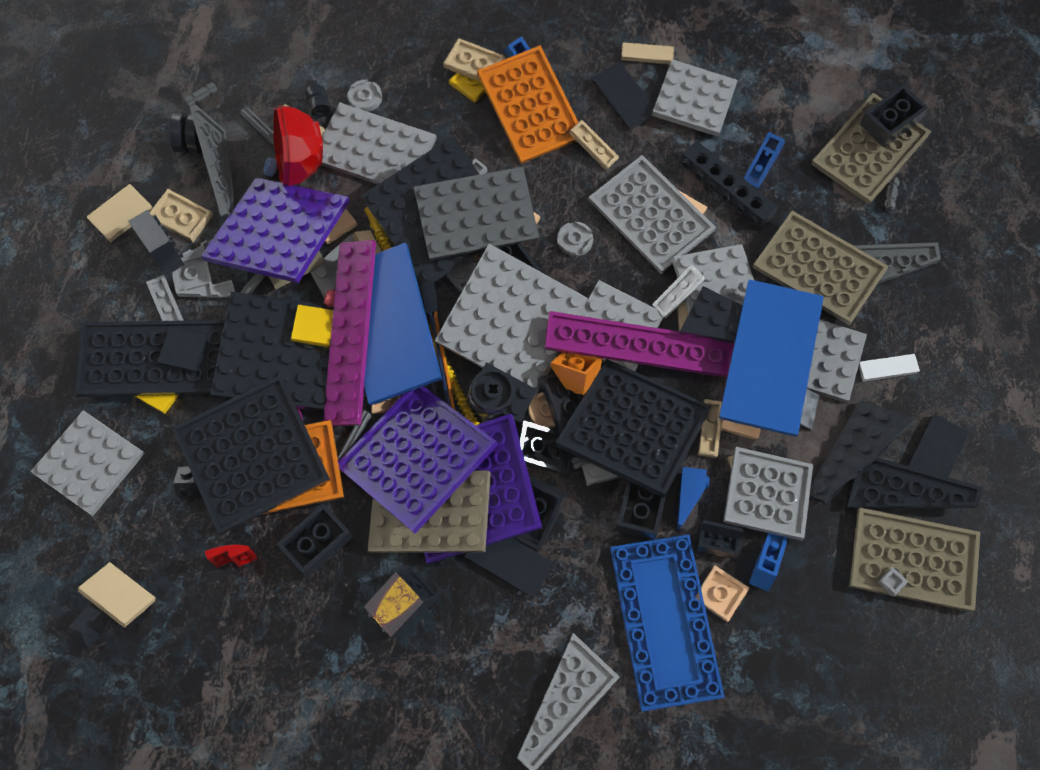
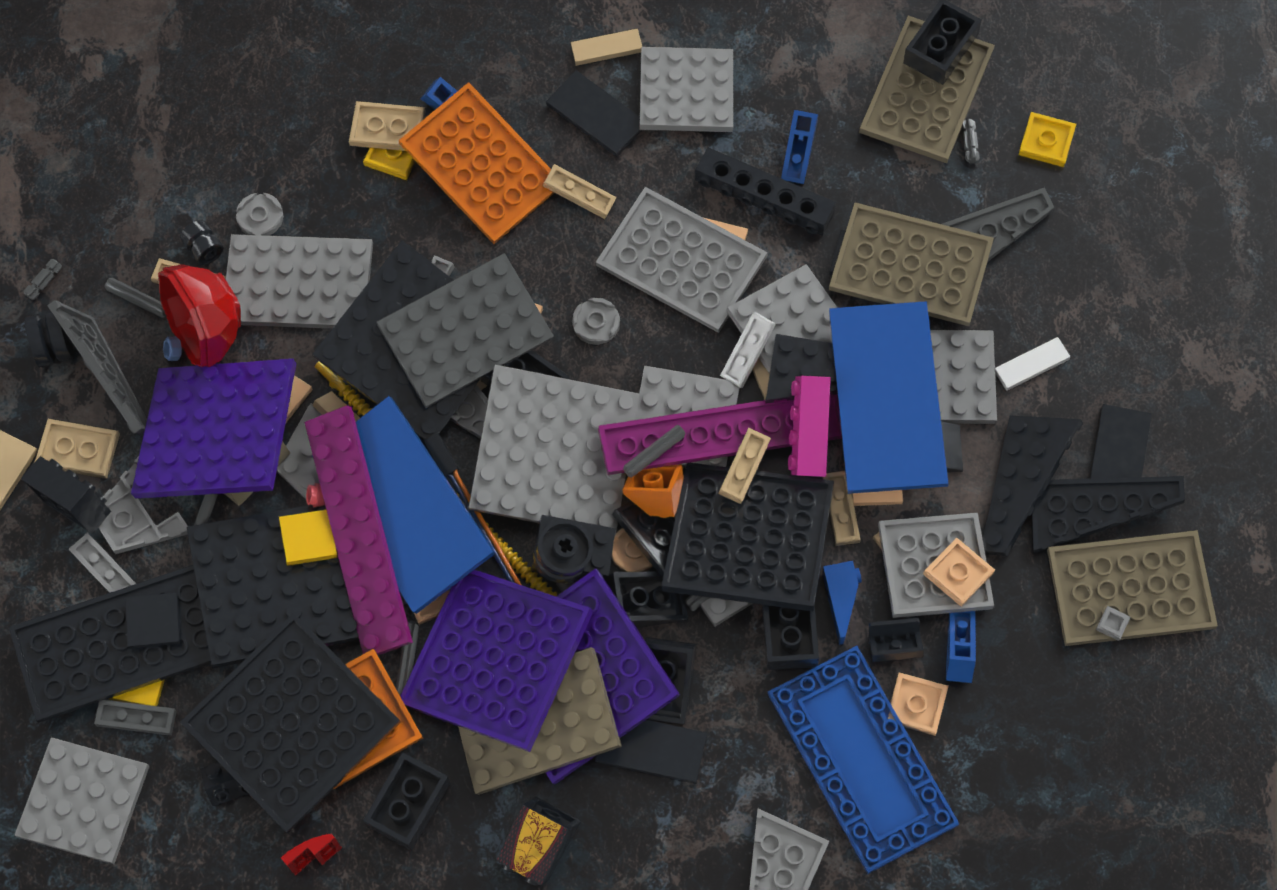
camera: 15 degrees left, 0 degrees up
(146, 415) = (135, 717): none -> dark grey plate
(584, 342) = (654, 451): none -> dark grey axle
(648, 374) = (744, 465): none -> tan tile
(706, 360) = (810, 426): none -> dark pink brick
(785, 504) = (959, 572): none -> light nougat tile
(949, 209) = (1047, 139): none -> yellow tile

